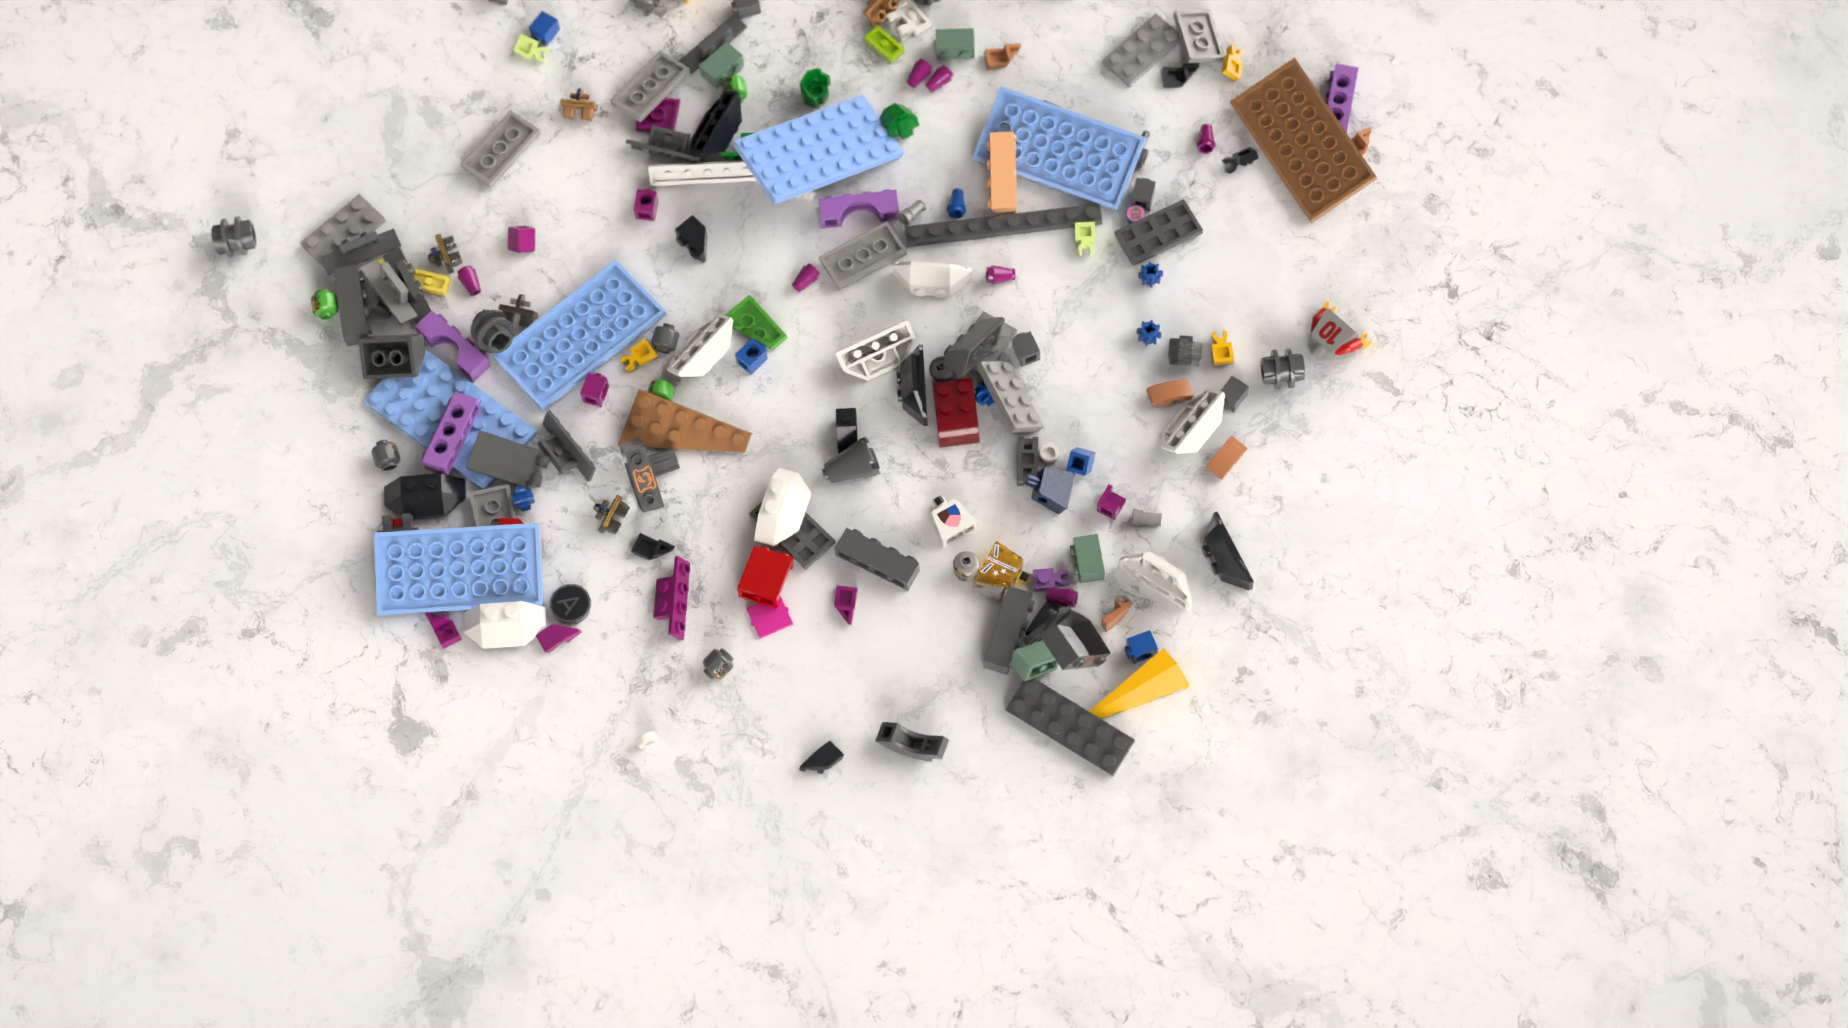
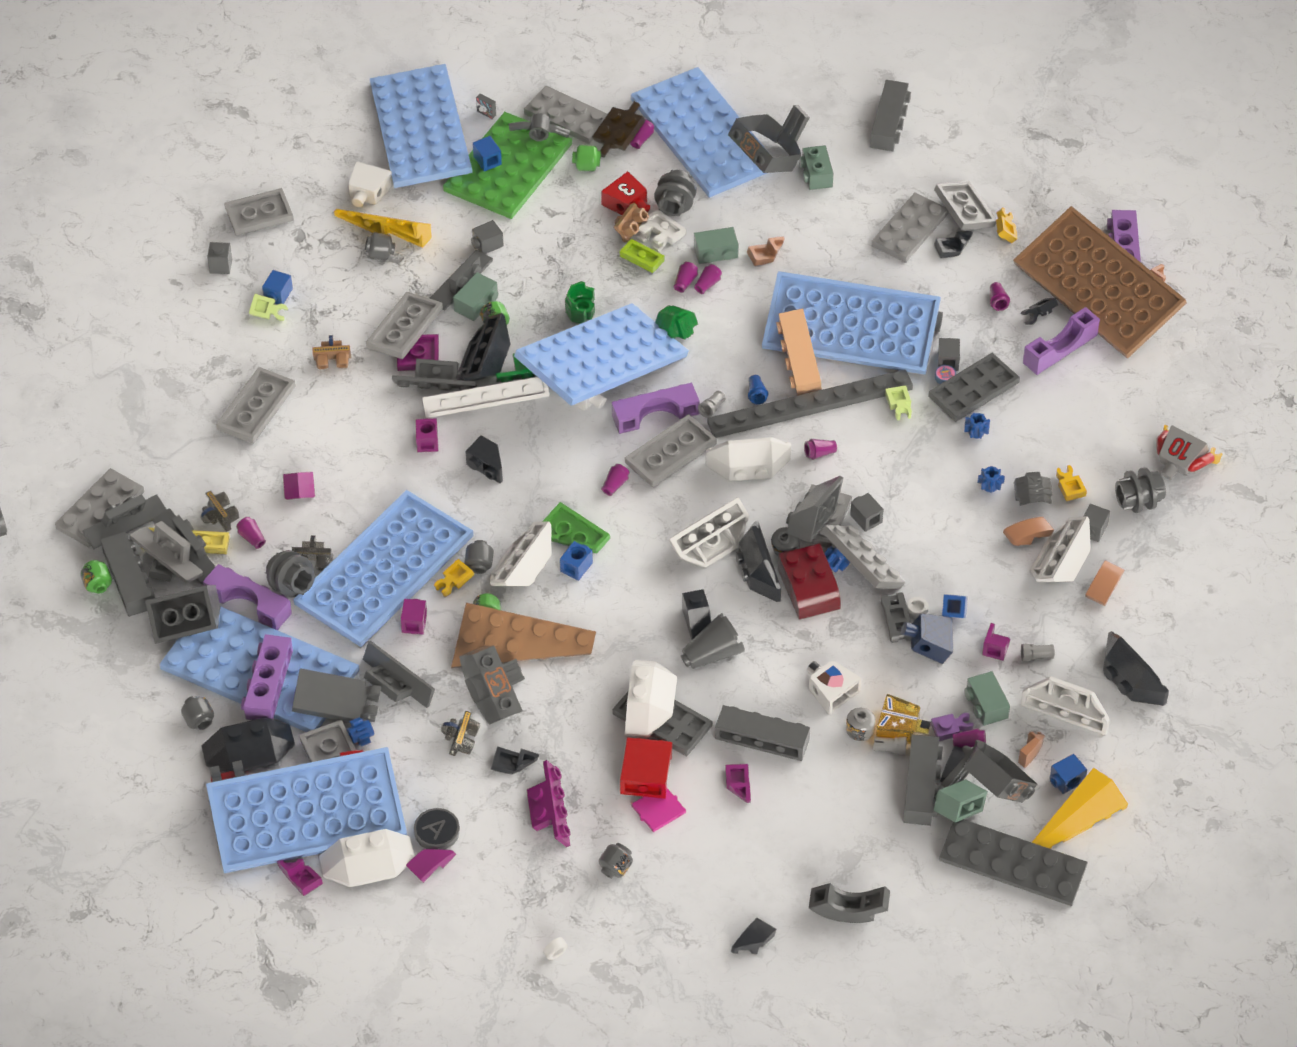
camera: 15 degrees left, 15 degrees down
(1268, 190) = (1078, 331): none -> medium lavender arch

